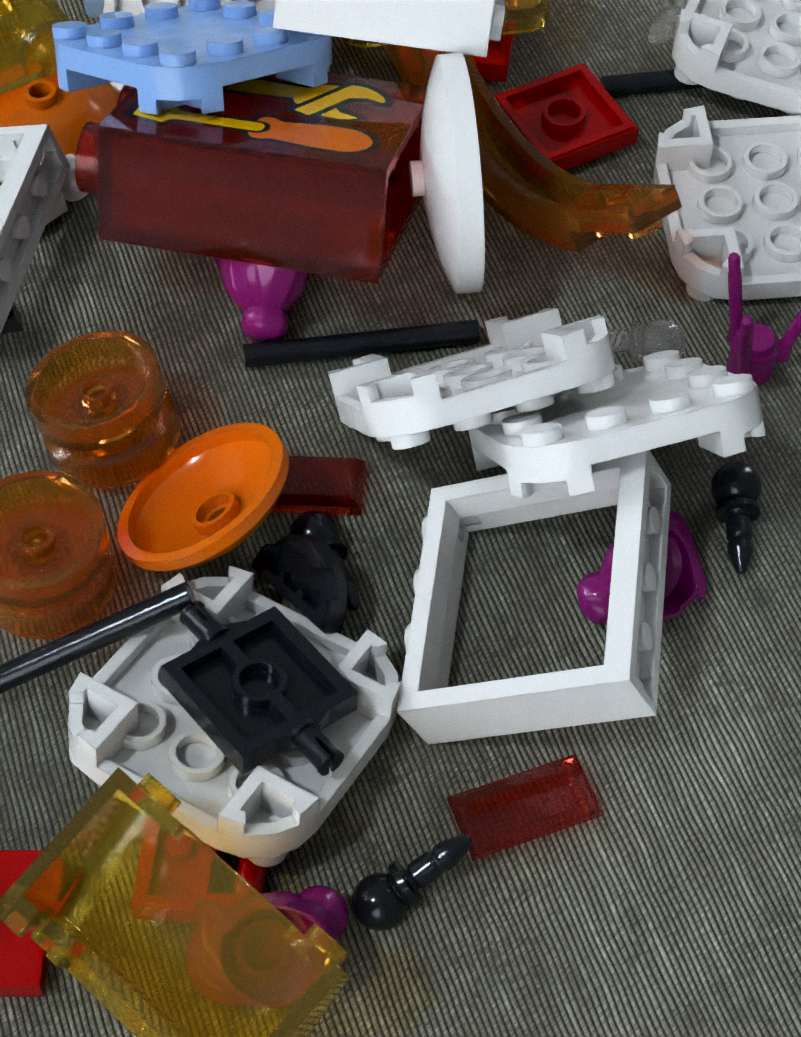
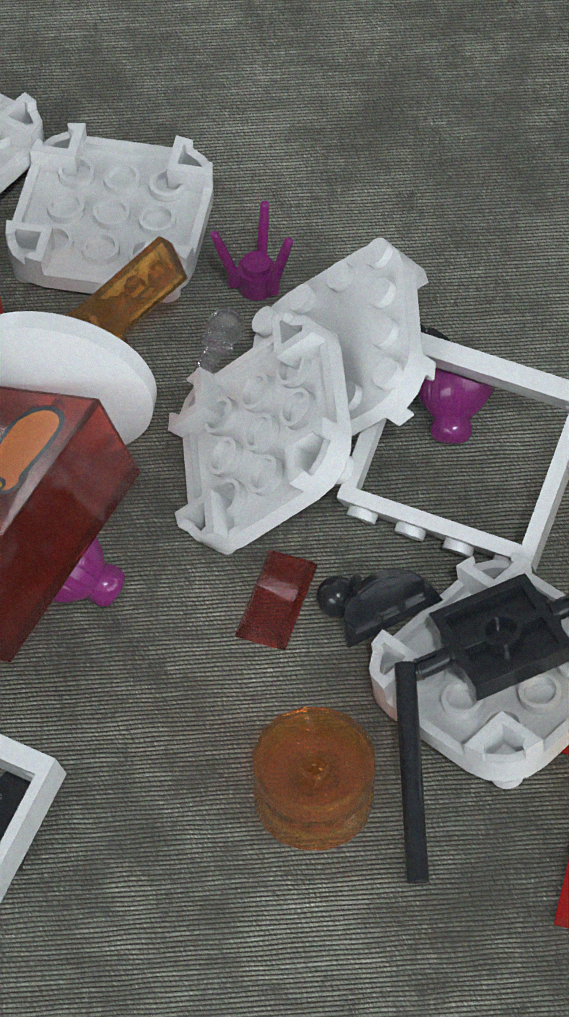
camera: 75 degrees left, 0 degrees up
(104, 408) = (178, 706): clear orange wheel -> none
(204, 498) = (272, 627): orange dish -> none
(361, 343) = (145, 528): black bar -> none

